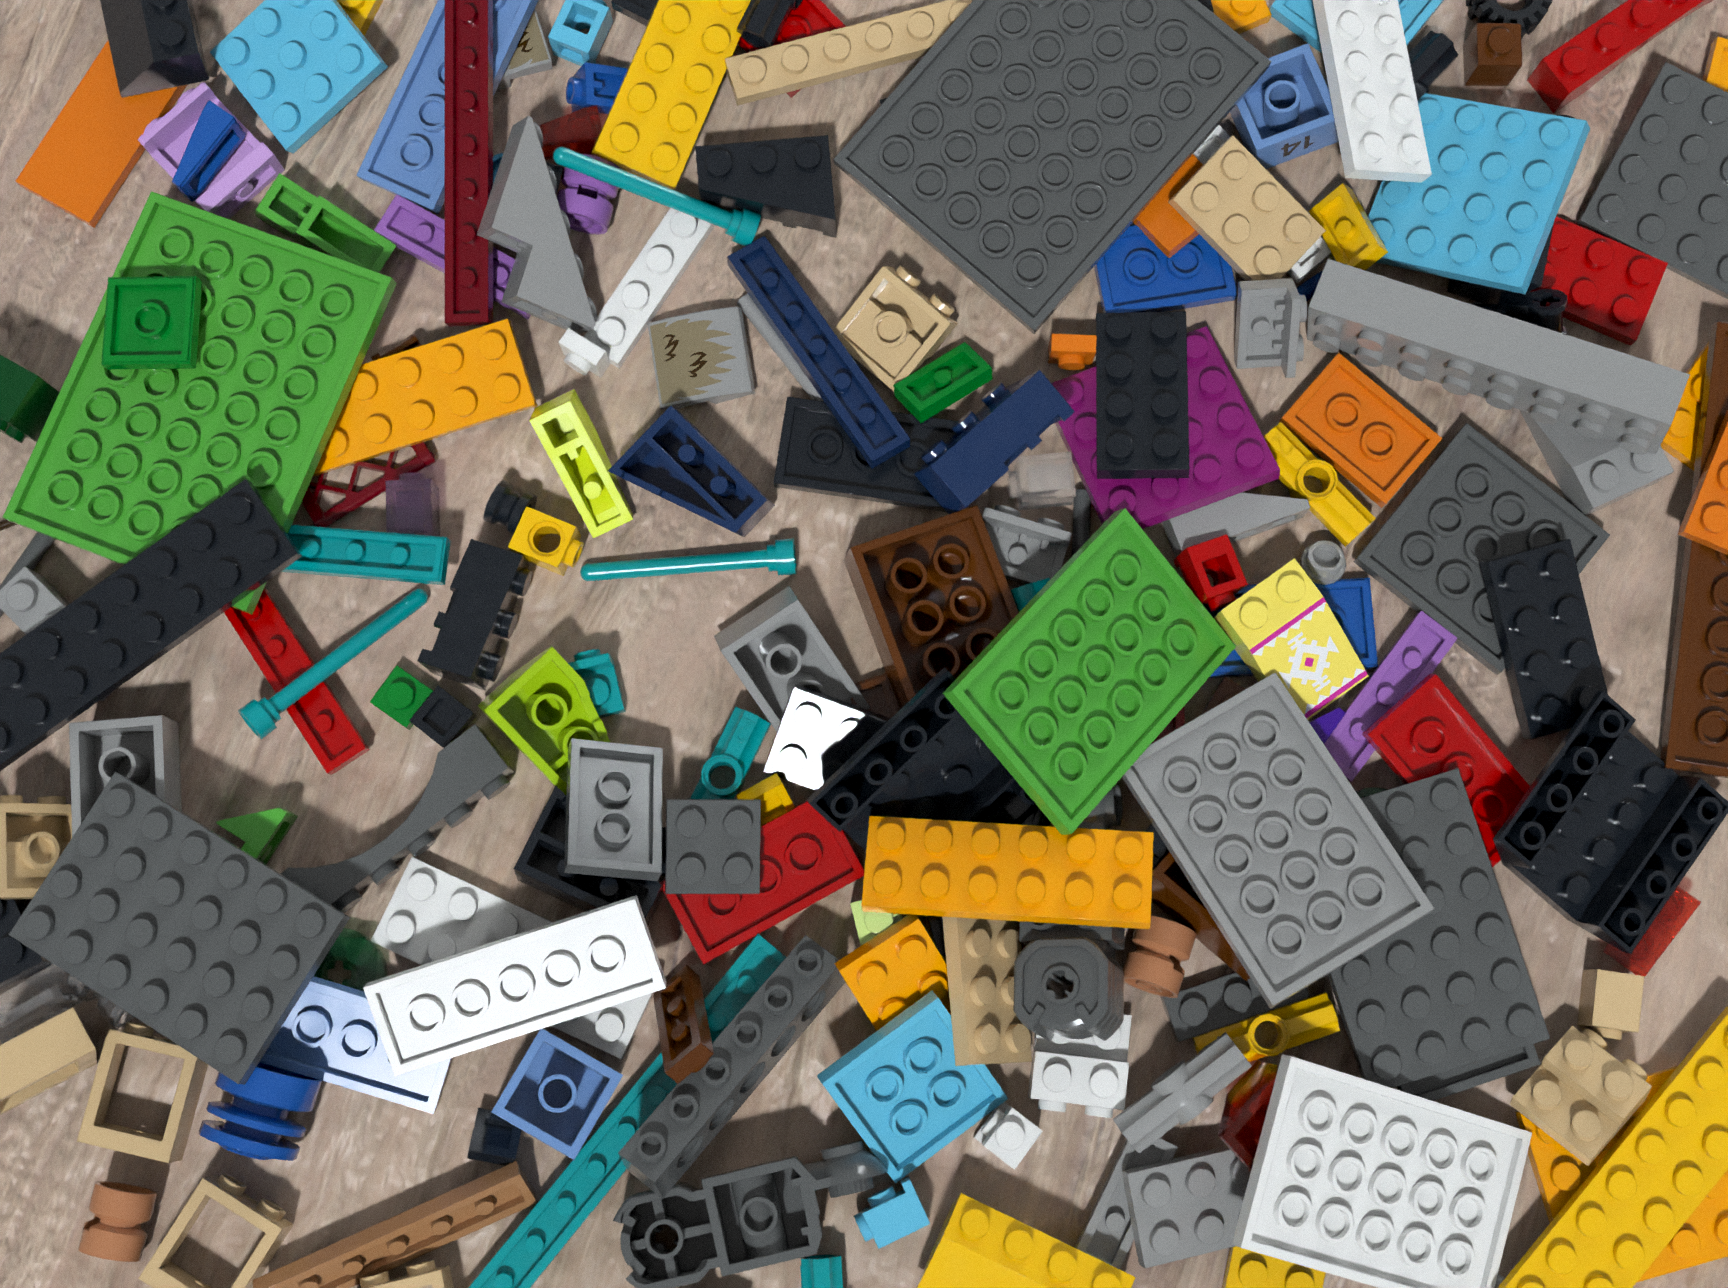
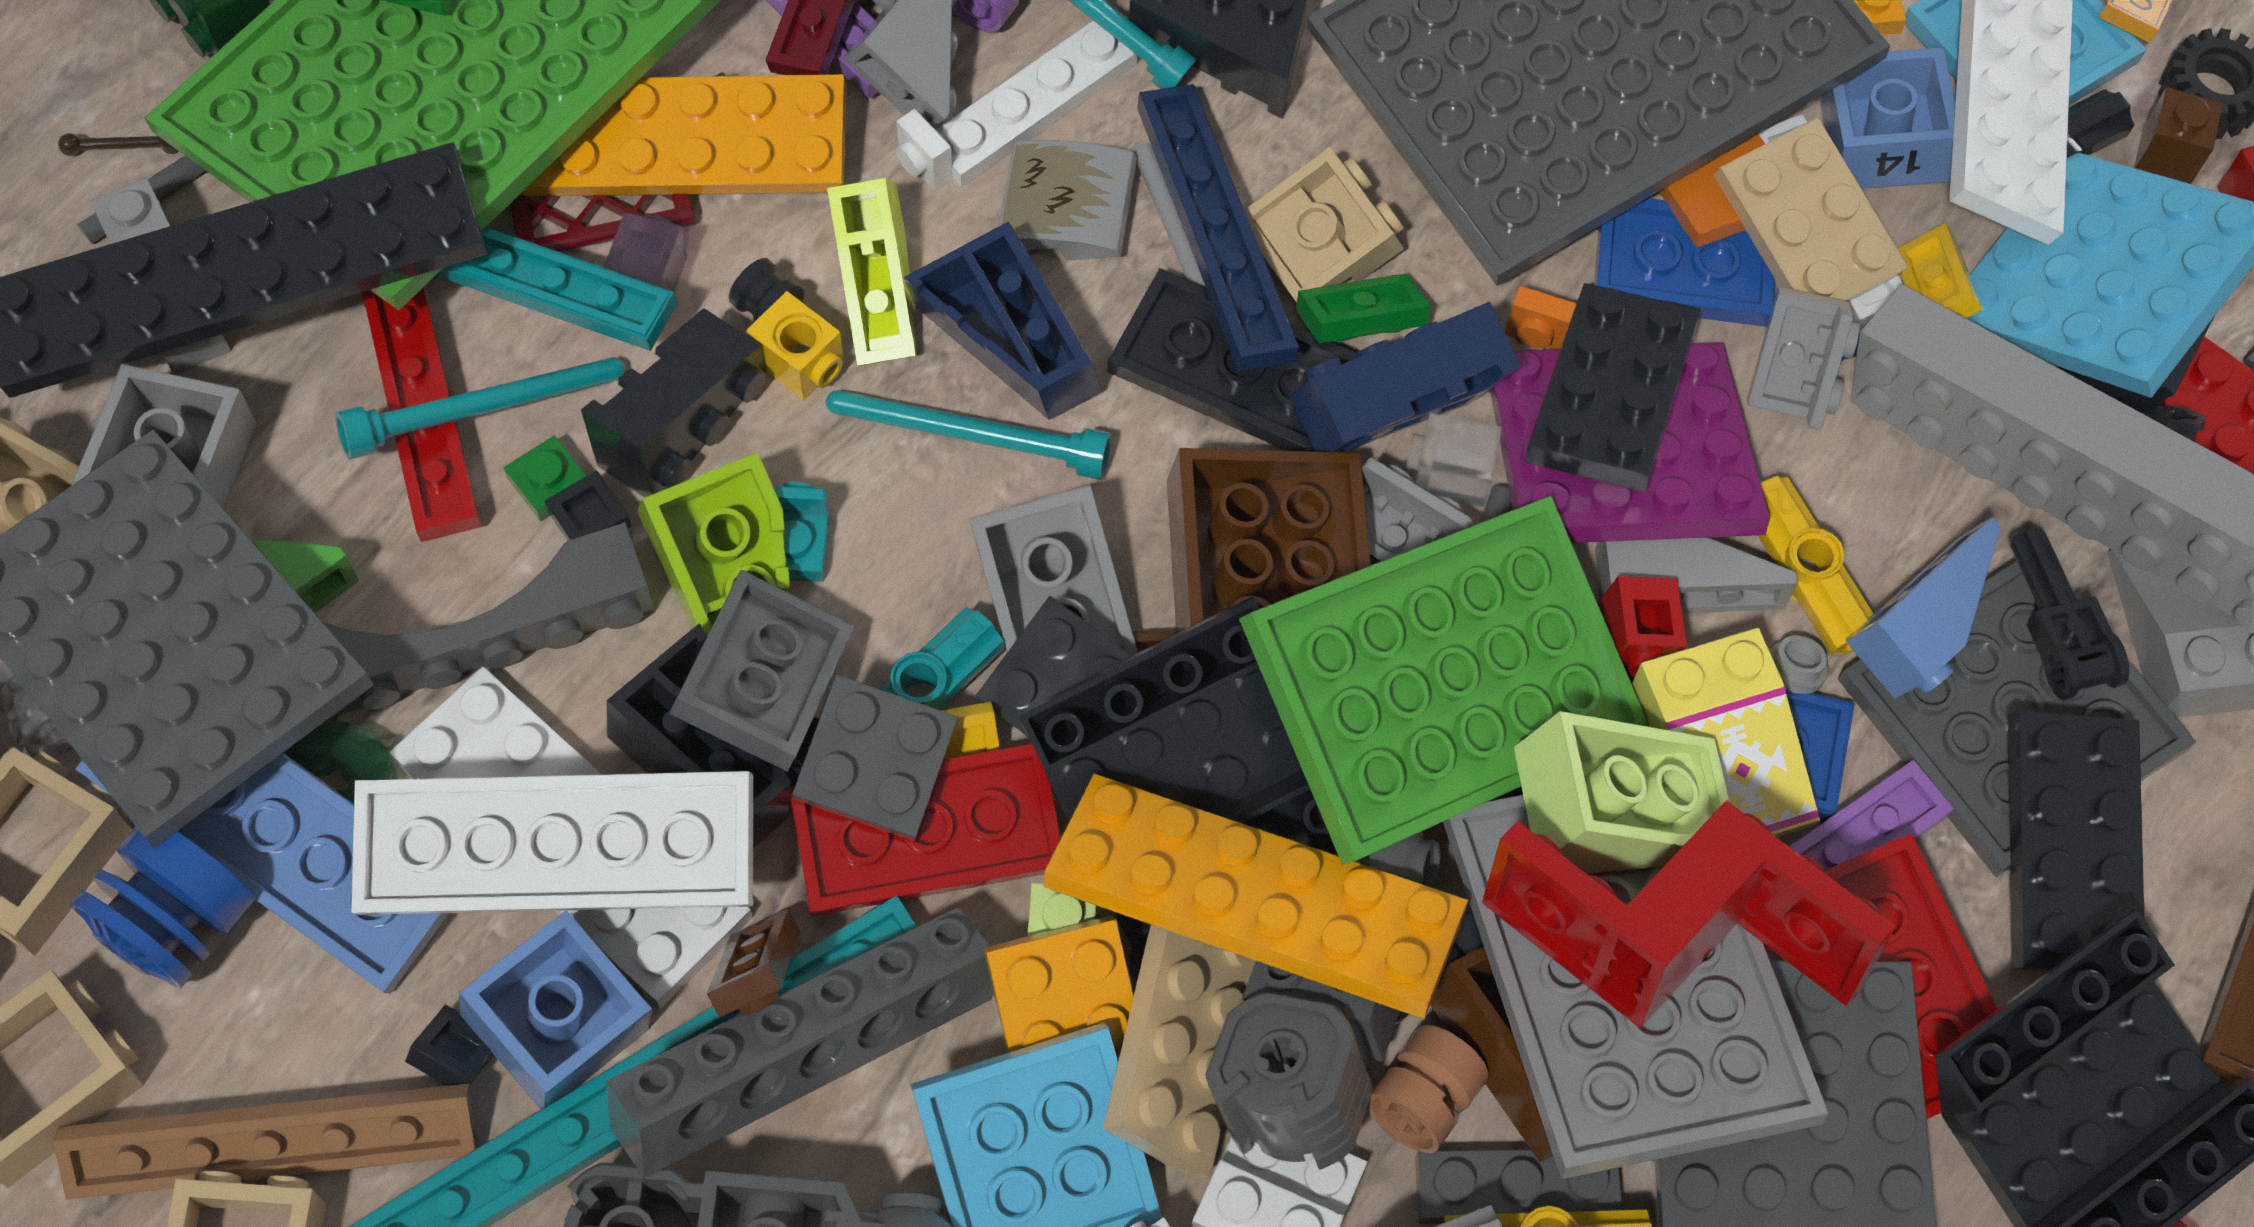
camera: 15 degrees right, 15 degrees down
(1238, 721) = (1617, 790): none -> yellowish green slope
(1322, 770) = (1717, 879): none -> red bracket
(1360, 430) = (1880, 509): orange plate -> none
(1409, 505) = (1929, 618): none -> medium blue slope
(1505, 484) = (2067, 632): none -> black connector

